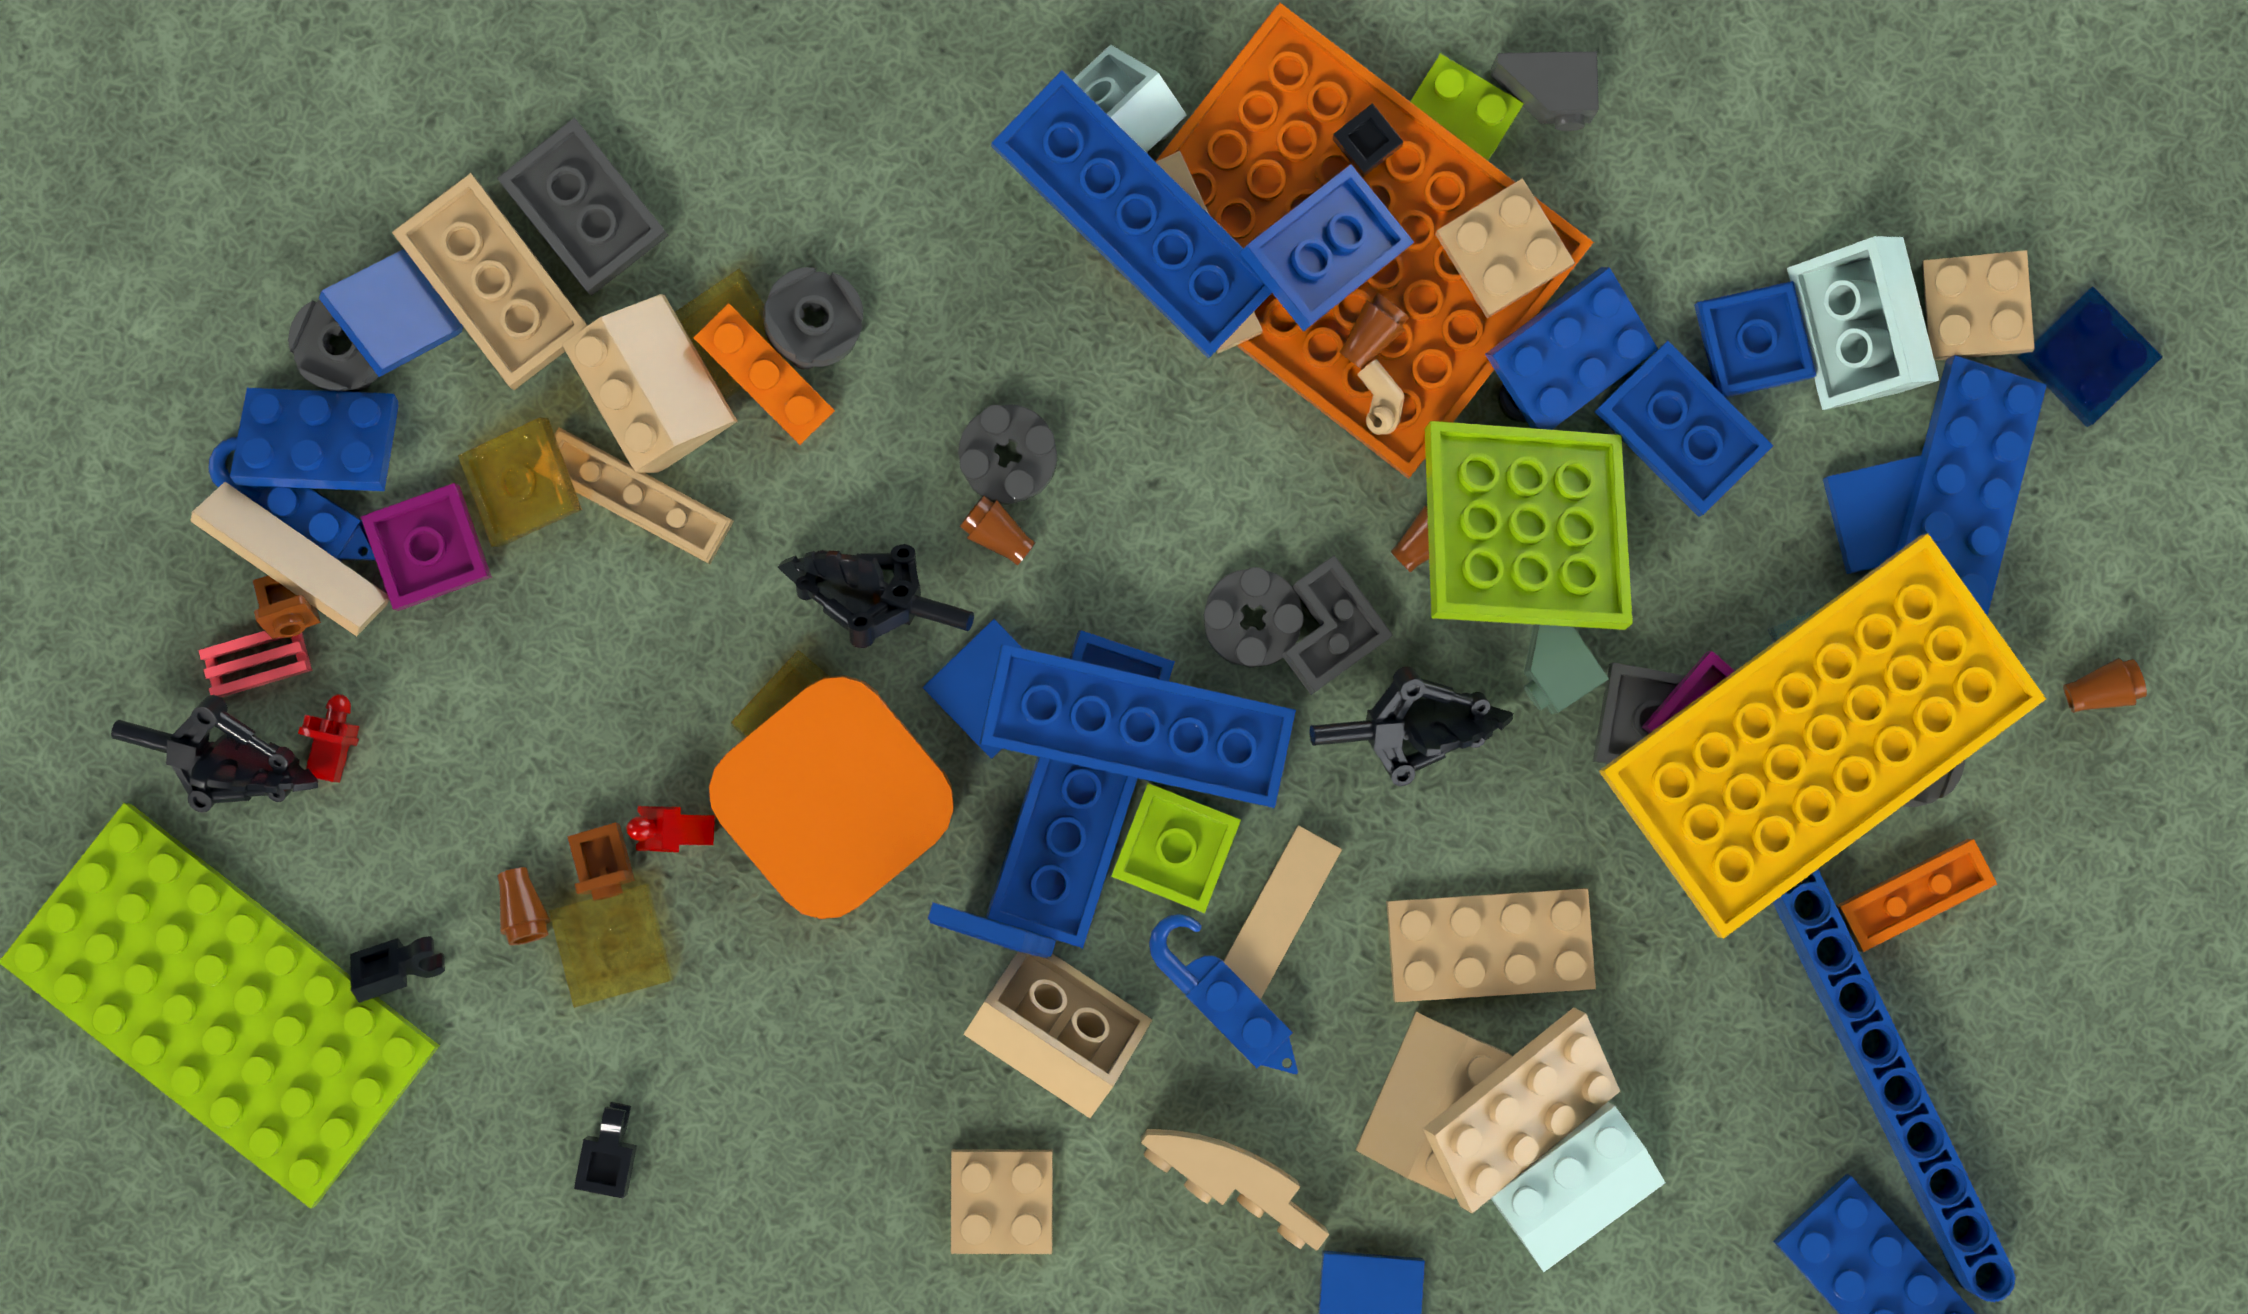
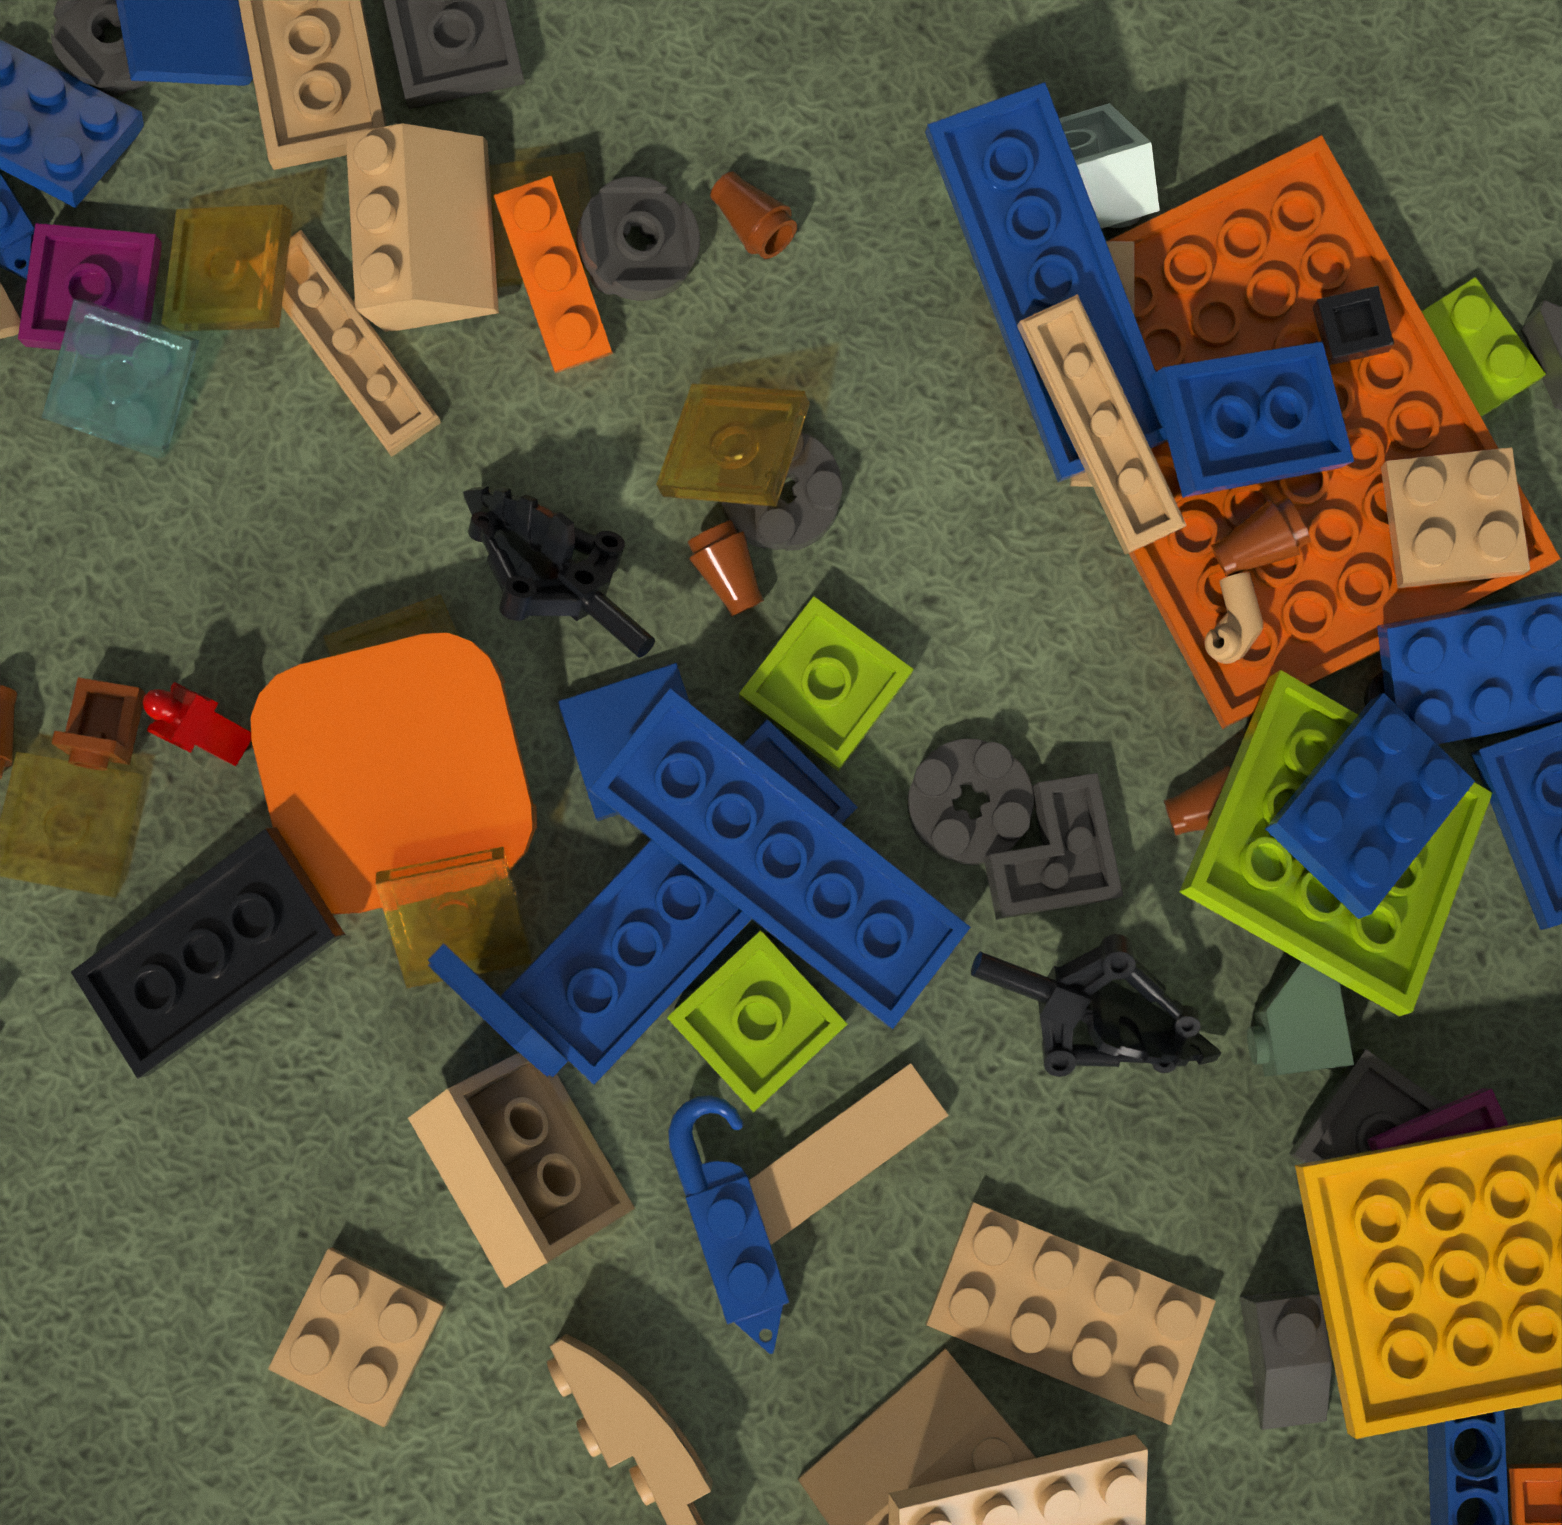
camera: 20 degrees right, 5 degrees down
(484, 603) = (120, 378): none -> clear light blue plate
(763, 987) = (207, 952): none -> black plate
(889, 257) = (756, 217): none -> dark orange cone
(923, 870) = (454, 902): none -> clear yellow tile
(958, 439) = (733, 444): none -> clear yellow tile
(1109, 582) = (826, 683): none -> lime plate
(1220, 305) = (1101, 424): none -> tan tile
(1538, 489) = (1370, 806): none -> blue plate
(1655, 903) = (1288, 1356): none -> dark grey slope

